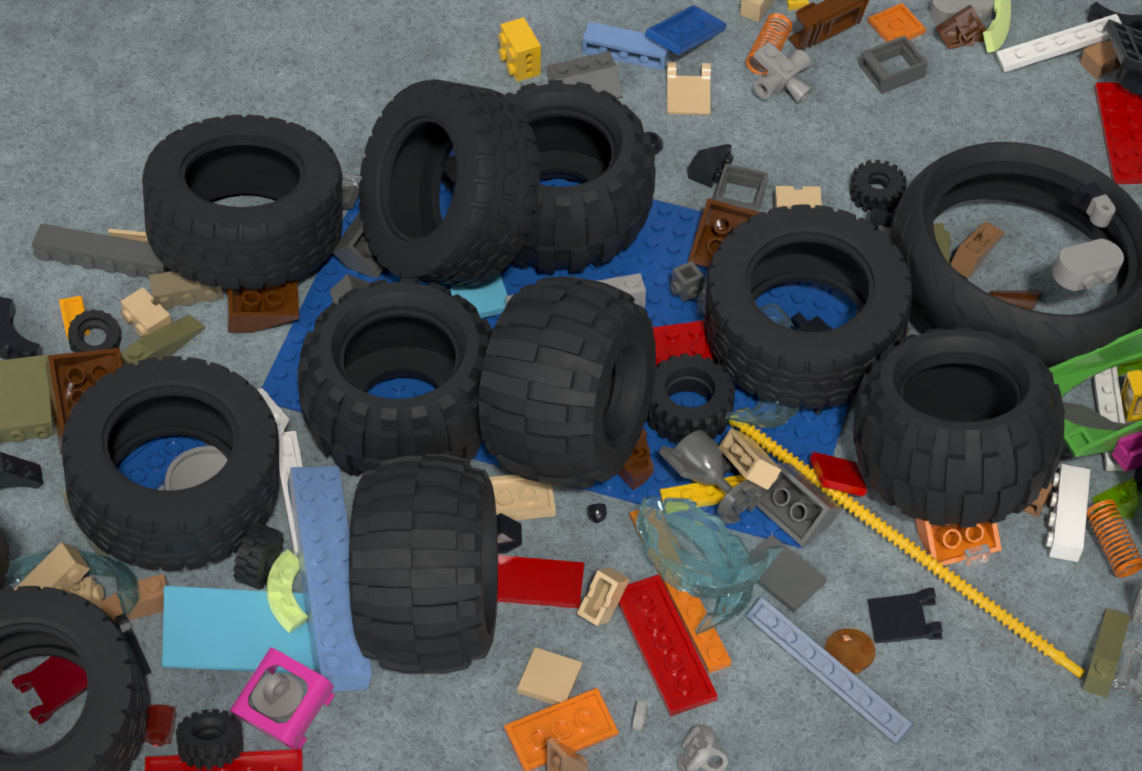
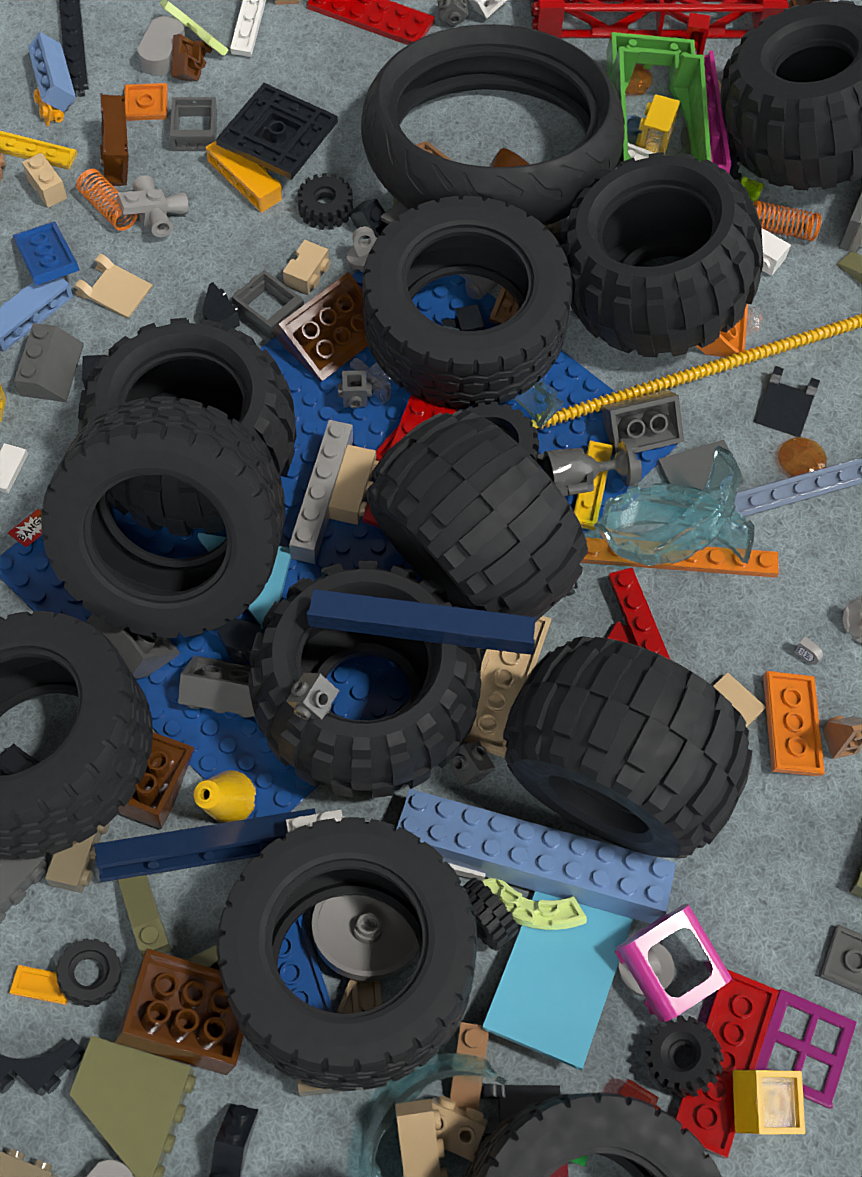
camera: 65 degrees left, 10 degrees up
(143, 313) = (91, 906): tan brick -> none
(212, 342) = (190, 846): none -> dark blue tile
(267, 350) = (226, 796): none -> yellow cone
(340, 314) = (312, 696): none -> dark grey brick
(440, 366) = (422, 622): none -> dark blue tile
(575, 588) = (636, 611): none -> red plate
(603, 596) = (676, 619): tan brick -> none
(666, 646) = (737, 596): red plate -> none
(749, 459) = (592, 430): tan brick -> none
(838, 474) = (626, 377): red tile -> none
(866, 120) = (246, 177): none -> light orange brick
(914, 115) = (277, 130): none -> black piece
(1088, 264) = (555, 81): light grey brick -> none
(1095, 203) = (486, 47): leg -> none

